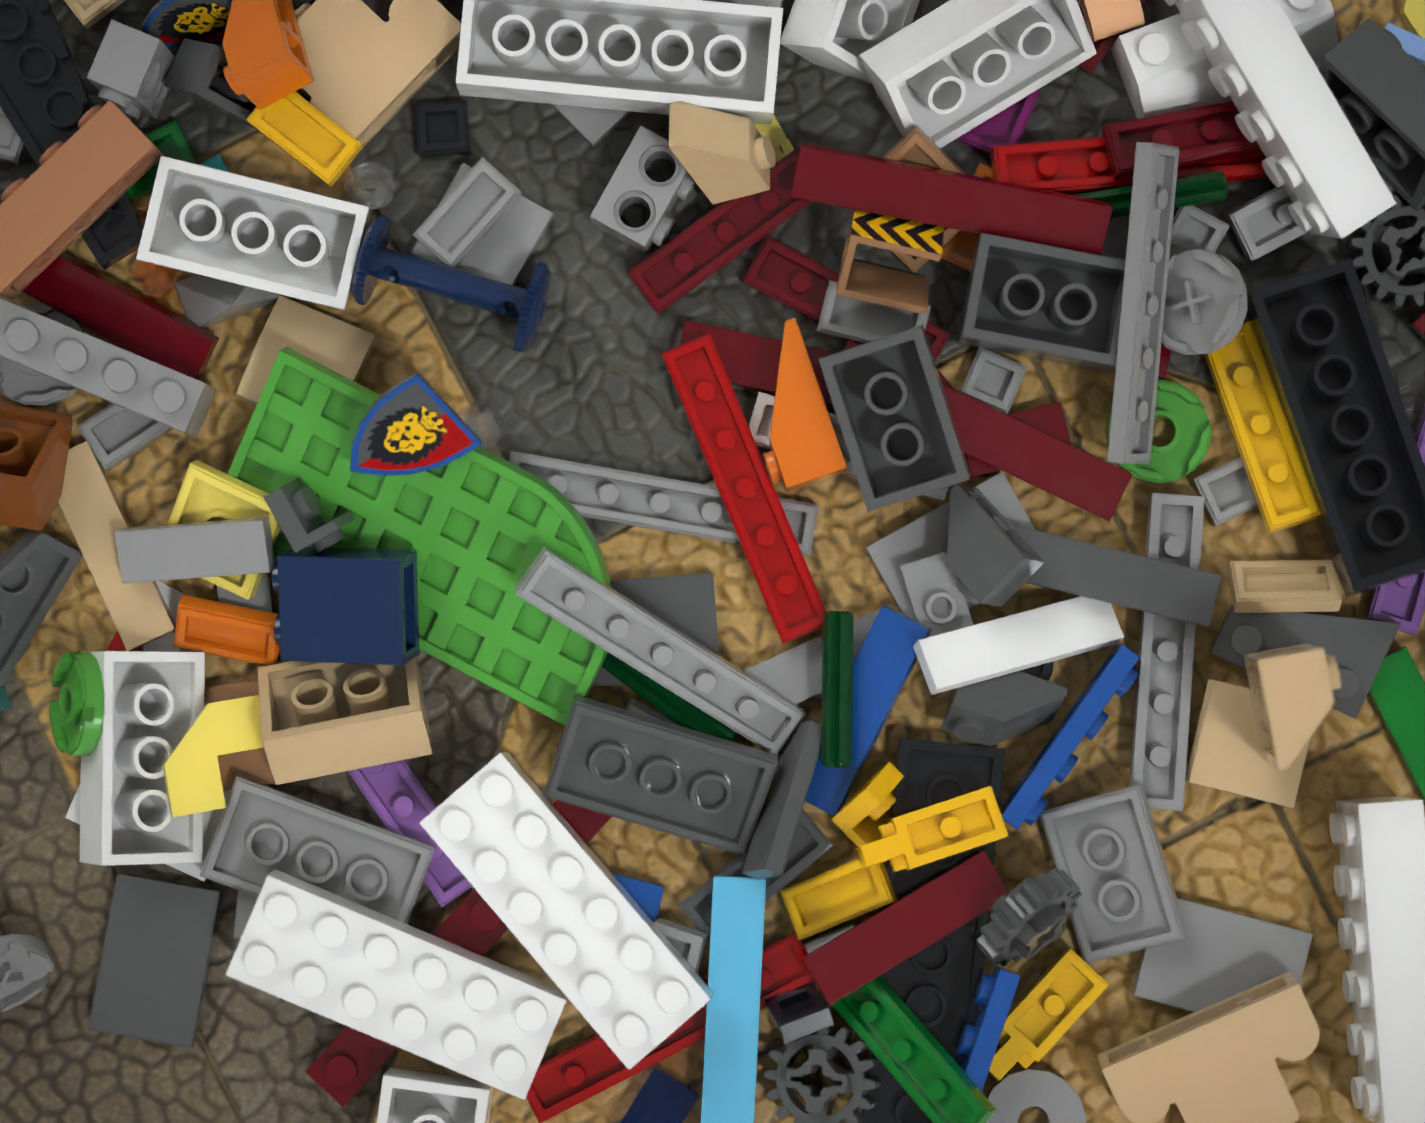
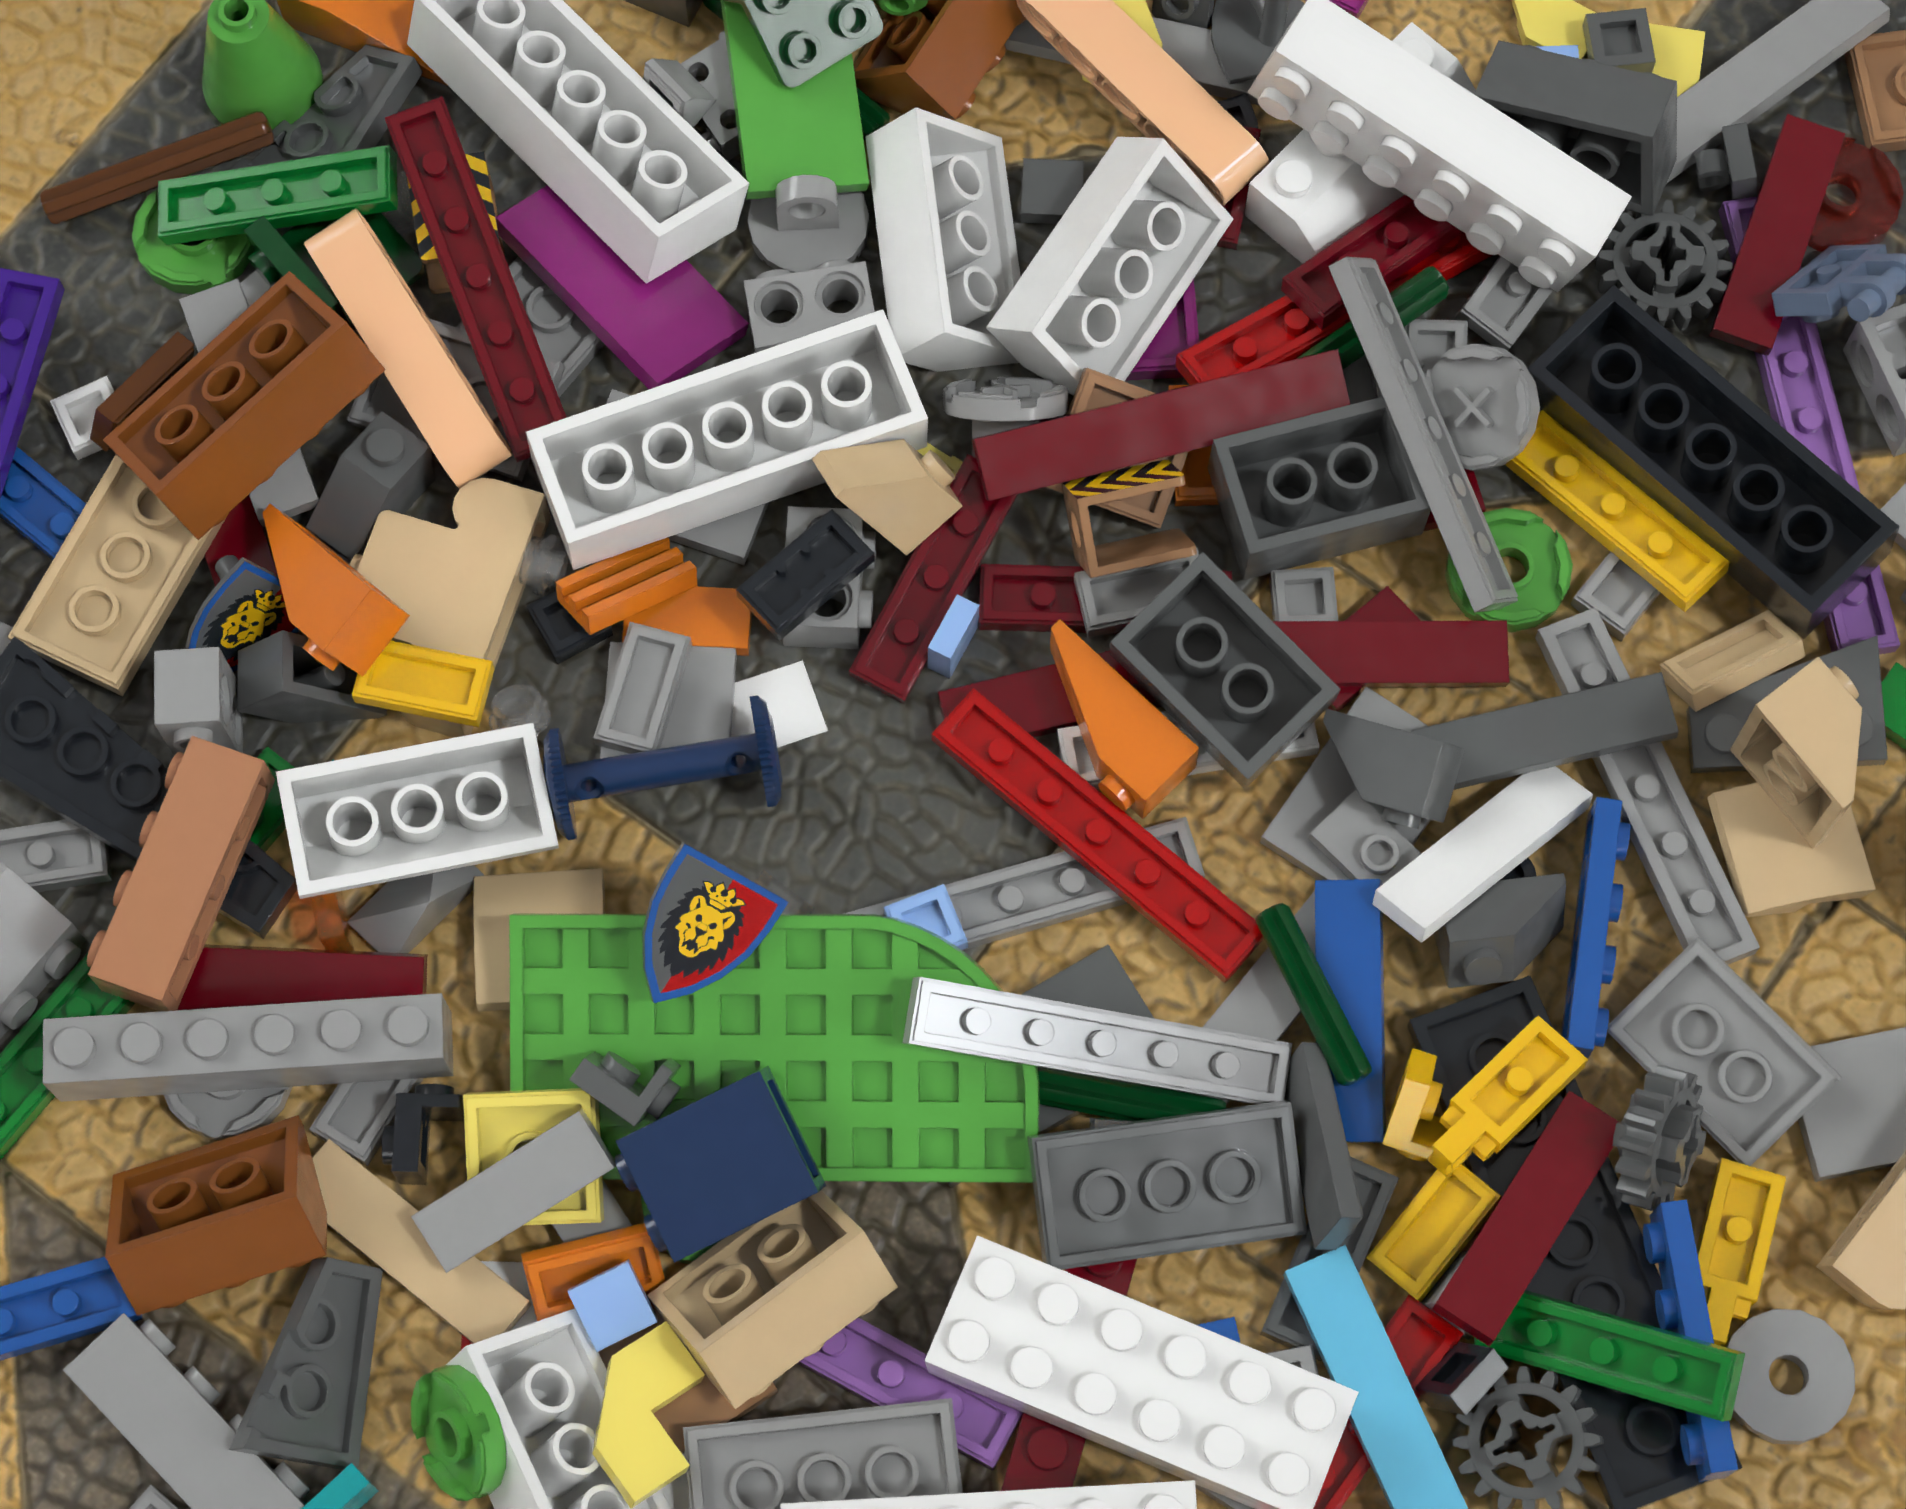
camera: 30 degrees left, 15 degrees down
(142, 470) = (407, 1141): none -> black bracket
(228, 664) = (612, 1305): none -> light blue tile
(439, 78) = (543, 564): none -> clear plate
(493, 117) = (621, 579): none -> orange tile
(533, 170) = (705, 614): none -> orange tile
(571, 266) = (788, 699): none -> white sticker
(589, 493) = (933, 912): none -> light blue tile
(624, 189) = (805, 574): none -> black plate
(716, 283) = (953, 636): none -> light blue tile
(844, 123) = (1005, 404): none -> light grey tile

